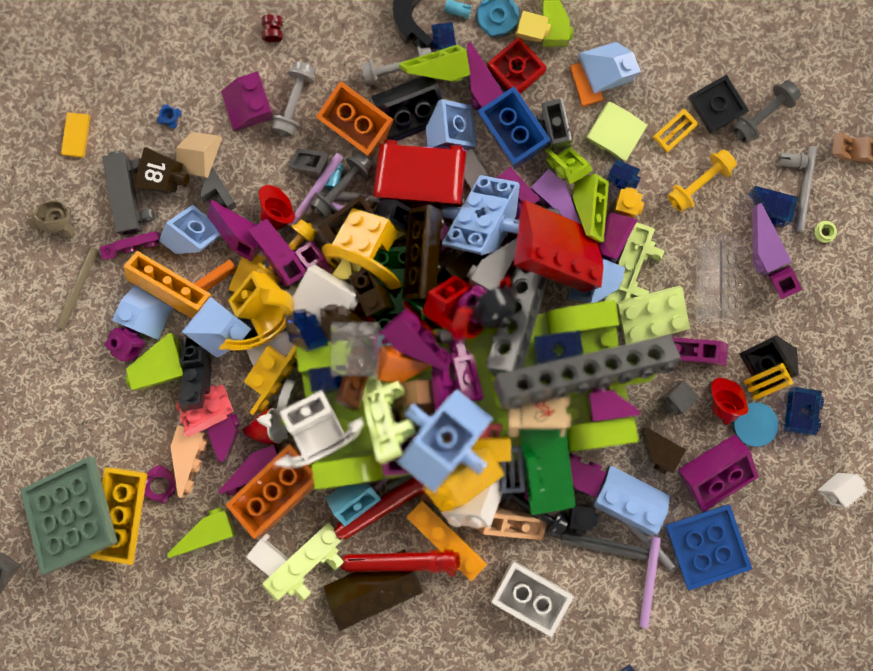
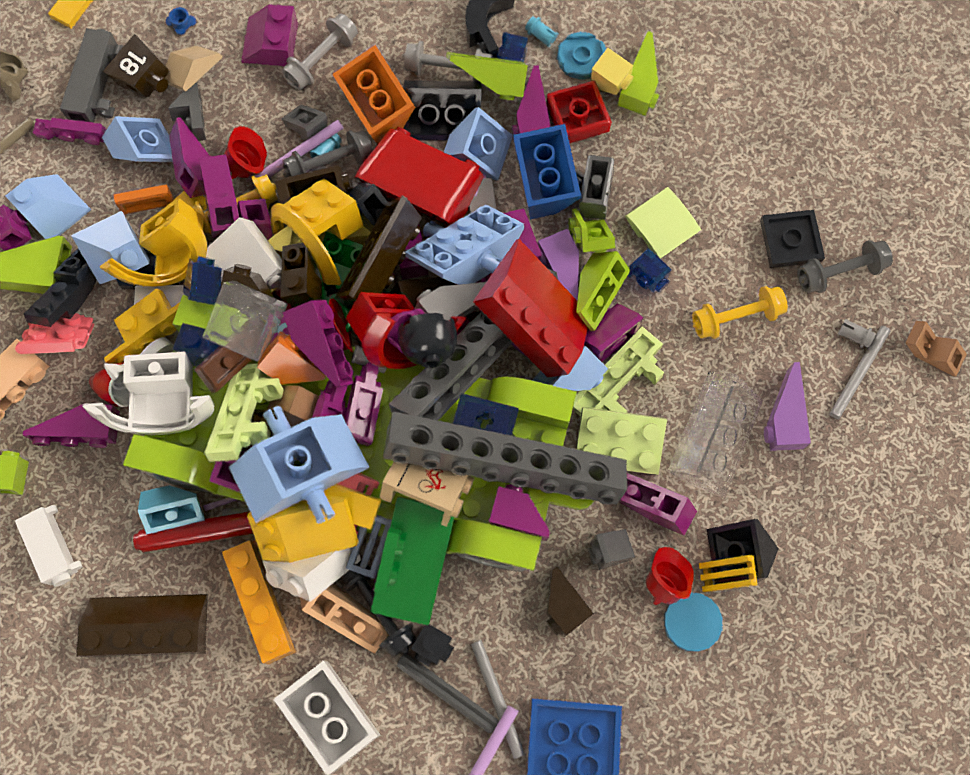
camera: 15 degrees right, 10 degrees down
(165, 284) = (81, 180): light orange brick -> none
(224, 435) = (64, 374): magenta slope -> none
(272, 494) = (77, 461): orange slope -> none
(290, 575) = (55, 560): yellowish green hinge -> none
(432, 561) = (224, 616): red cylinder -> none
(583, 86) = (650, 160): orange tile -> none
(586, 477) = (456, 595): magenta slope -> none
(609, 66) = (682, 152): light blue slope -> none
(628, 203) = (645, 301): yellow brick -> none
(632, 501) = (502, 650): light blue slope -> none
(662, 143) = (710, 257): yellow tile -> none
(719, 472) = (624, 662): magenta slope -> none
(777, 205) = (818, 374): clear blue slope -> none
(785, 282) = (794, 464): magenta brick -> none
(797, 421) = (744, 636): clear blue brick -> none
(832, 231) = (872, 425): yellowish green plate -> none
(843, 489) = (771, 746): white brick -> none

